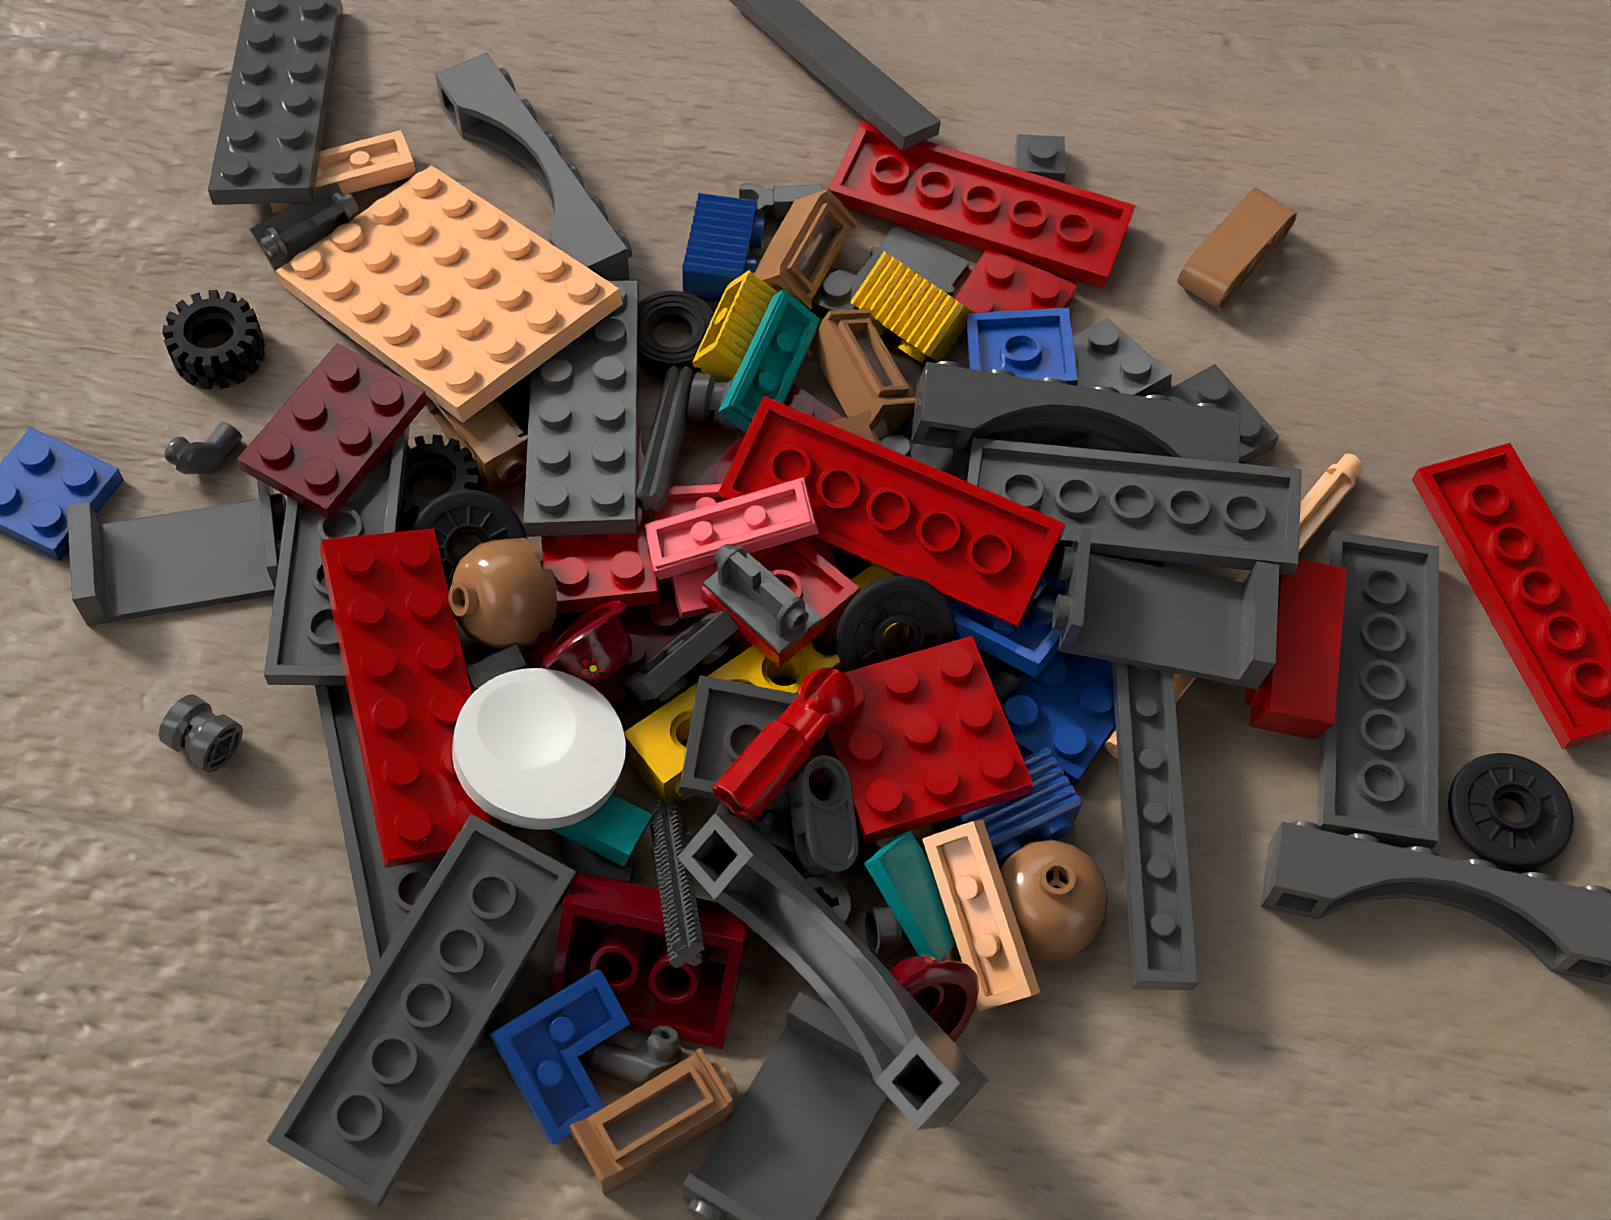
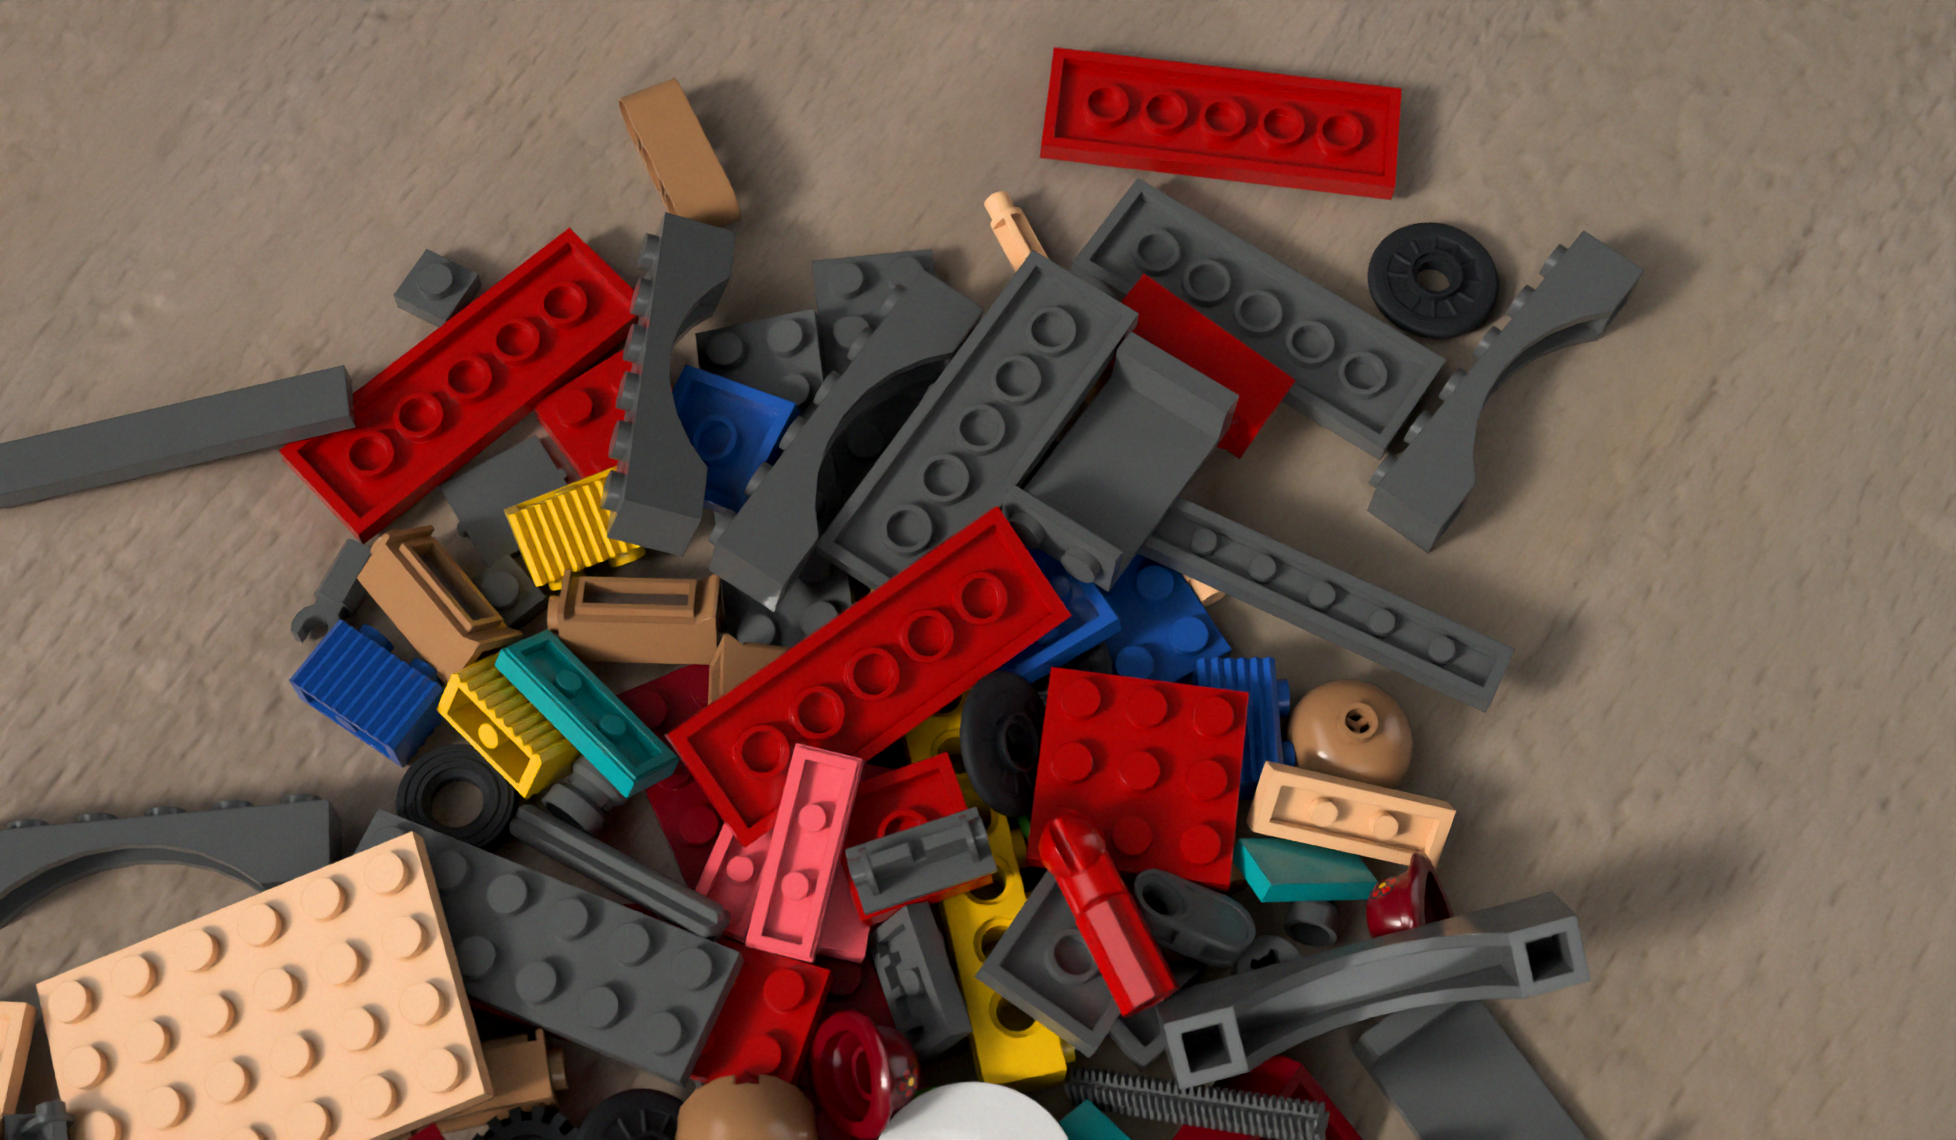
camera: 65 degrees left, 5 degrees up
(1133, 285) = (659, 475): none -> dark grey arch

